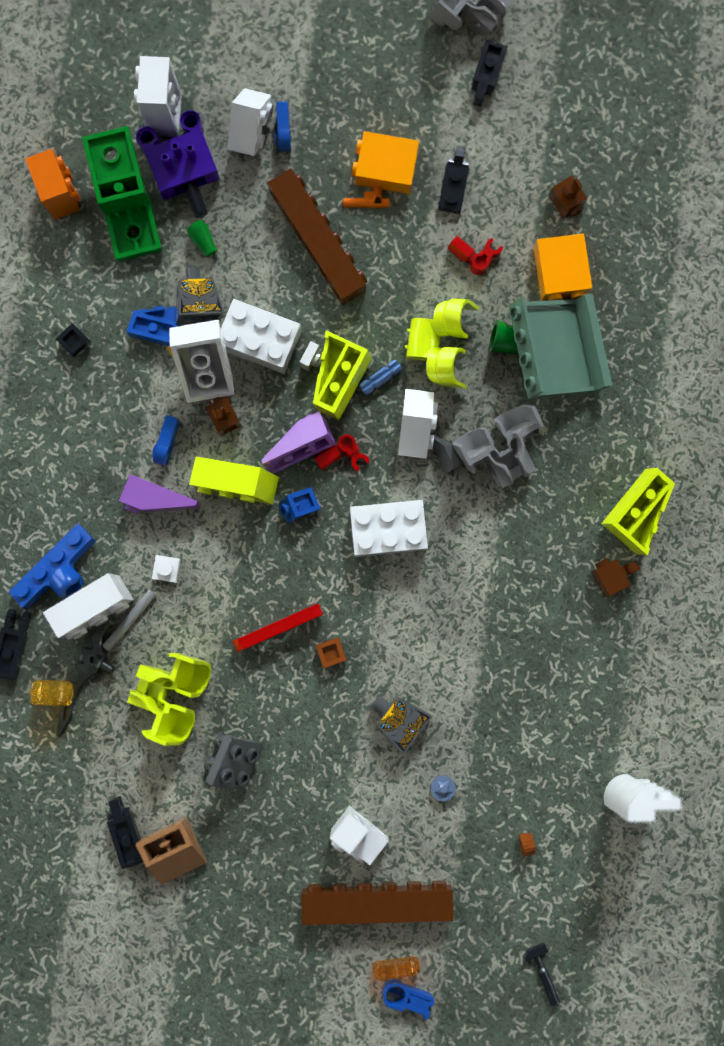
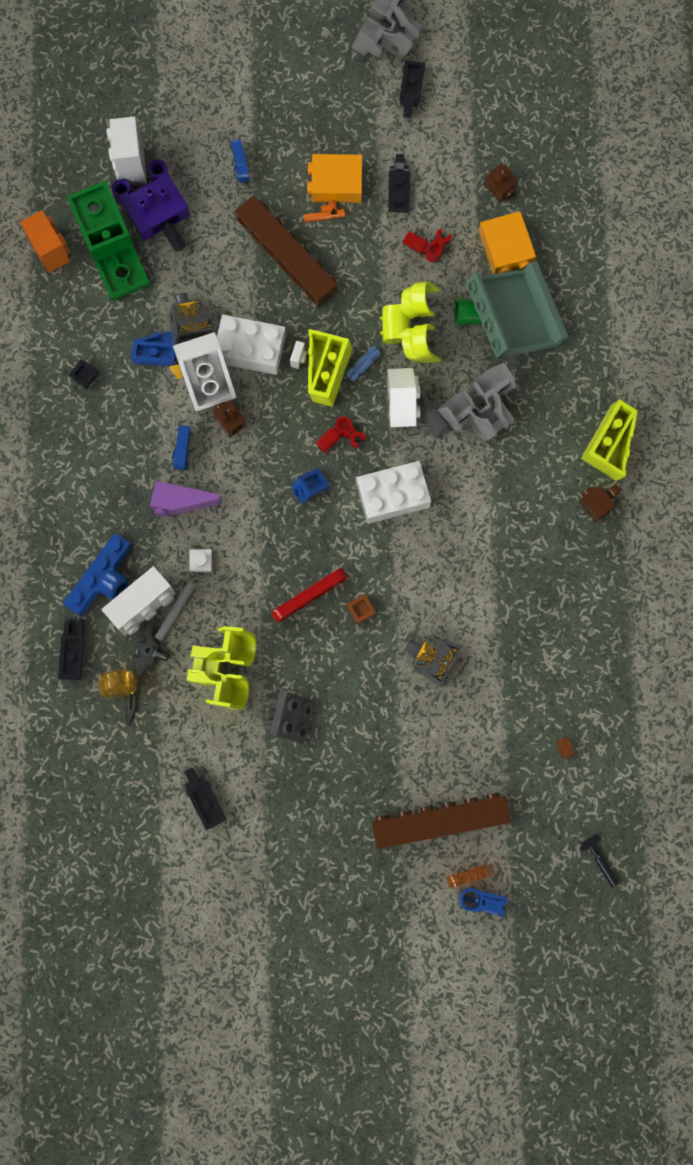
camera: 10 degrees left, 5 degrees down
(171, 851) = (249, 806): medium nougat slope -> none
(202, 238) = (184, 268): green cone -> none
(234, 480) = (248, 472): neon yellow wedge -> none
(247, 119) = (208, 160): white brick -> none
(300, 442) = (302, 430): slope -> none
(358, 835) = (414, 764): white brick -> none
(443, 788) = (481, 712): sand blue tile -> none
(638, 798) = (654, 682): white brick -> none

